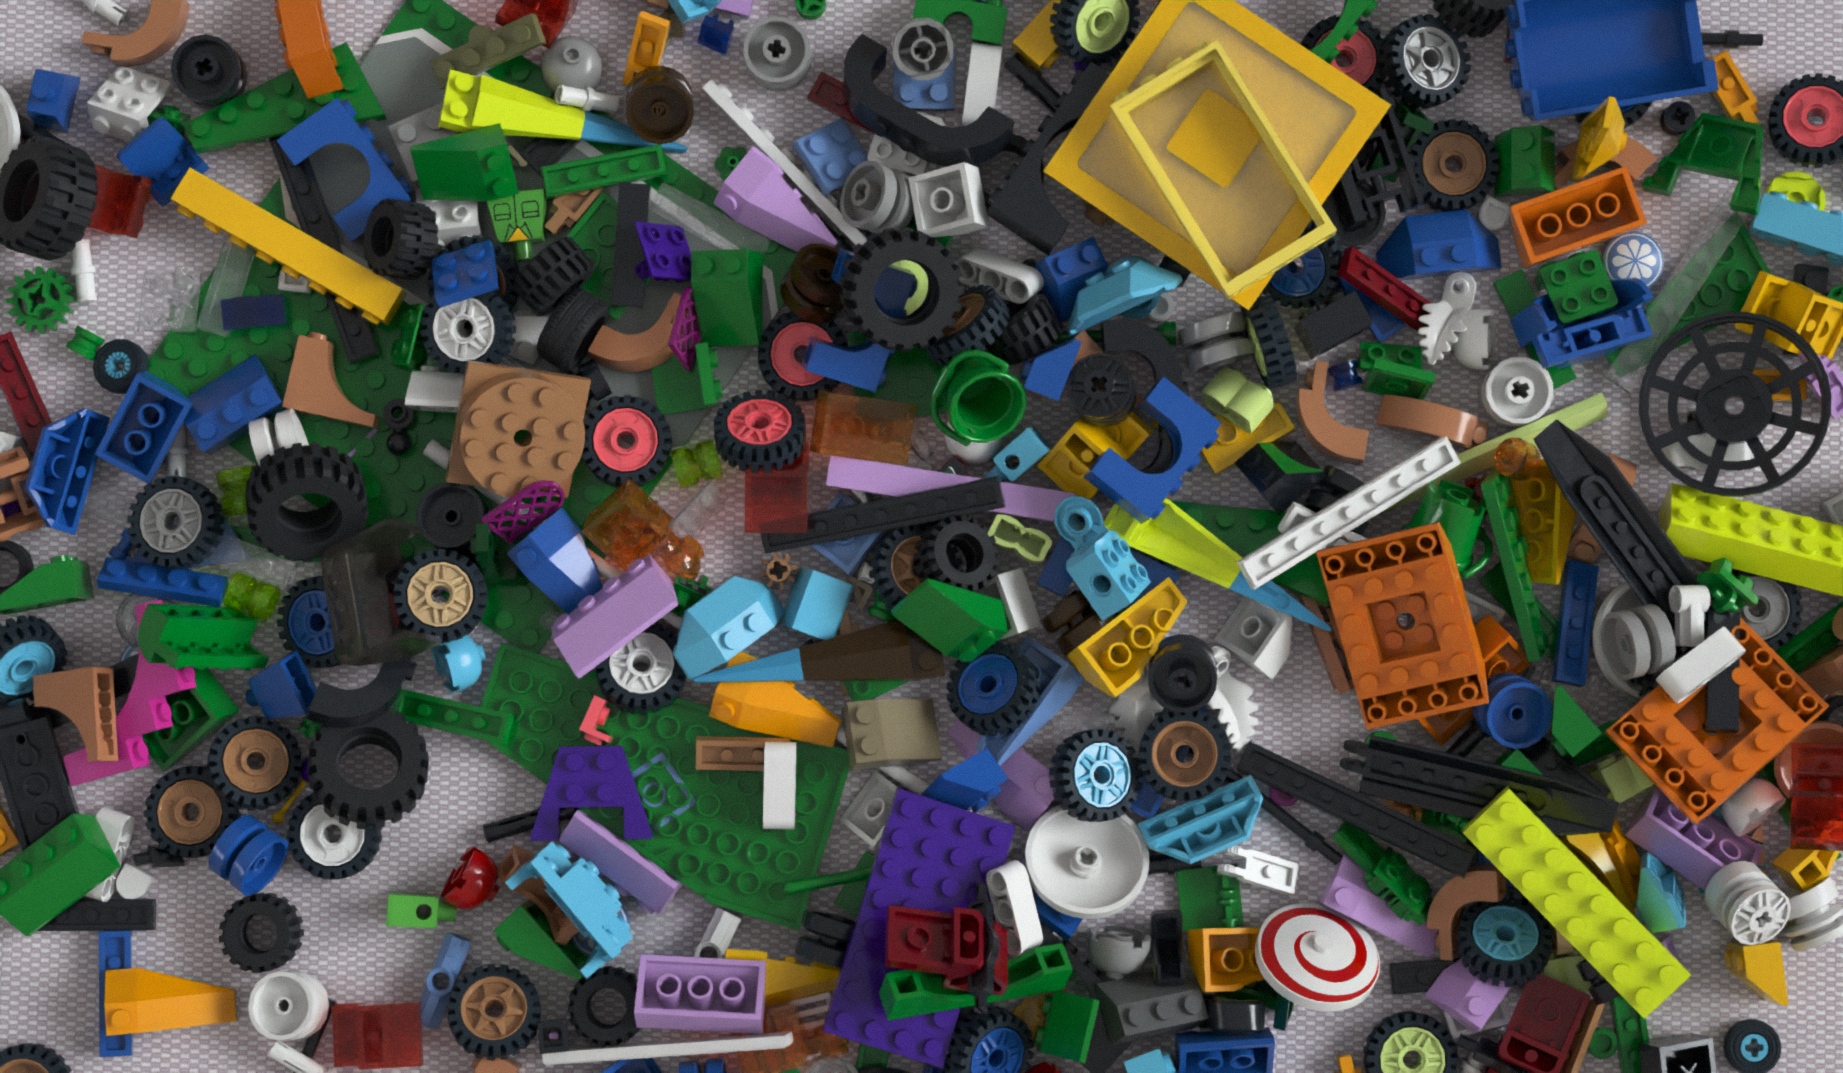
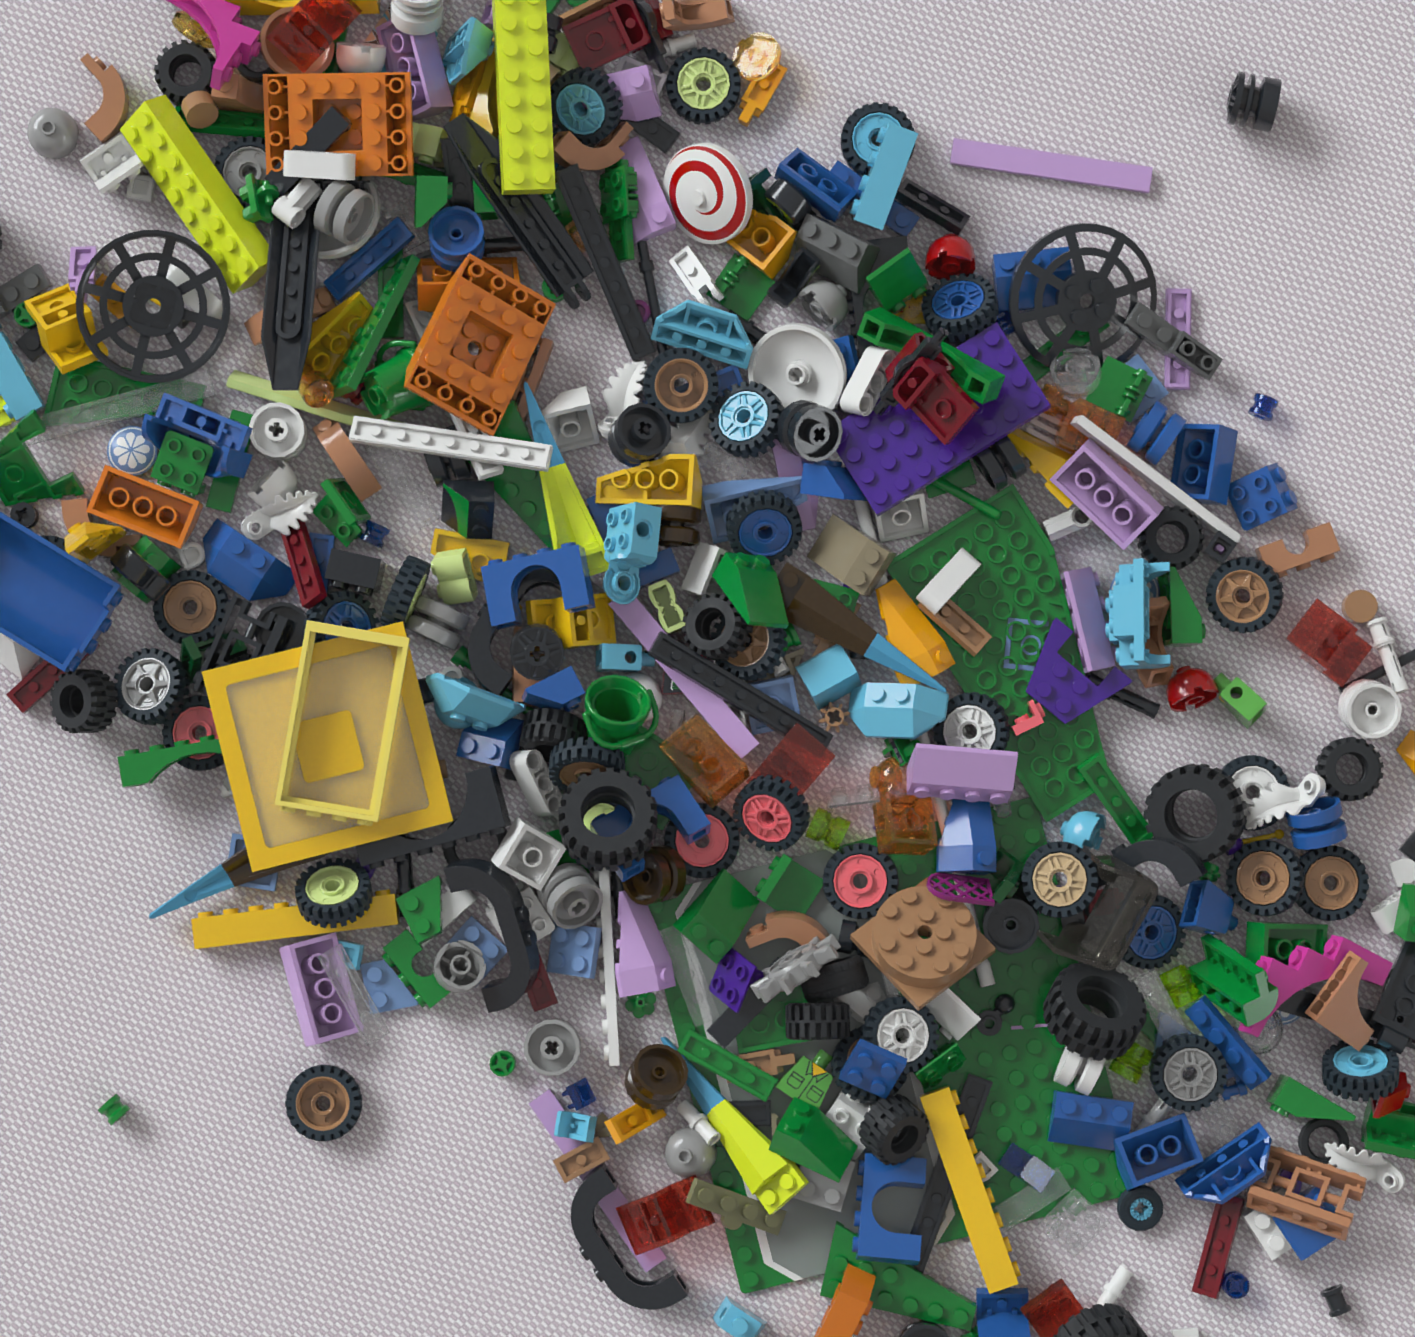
camera: 140 degrees left, 0 degrees up
(36, 311) = (1145, 1301): green gear -> none
(85, 343) = (1150, 1242): green wheel -> none
(157, 858) = (1376, 873): black bar -> none
(295, 850) = (1284, 800): none -> white plant
(314, 385) = (1027, 1085): nougat arch -> none
(449, 961) = (1247, 651): medium blue piece -> none
(612, 304) = (796, 967): none -> light grey gear
(694, 335) = (777, 899): magenta window -> none
(1001, 73) = (423, 909): none -> green wing
(1028, 812) = (809, 430): none -> black wheel
(1322, 431) = (419, 516): nougat arch -> none
(1528, 148) = (140, 572): none -> black animal

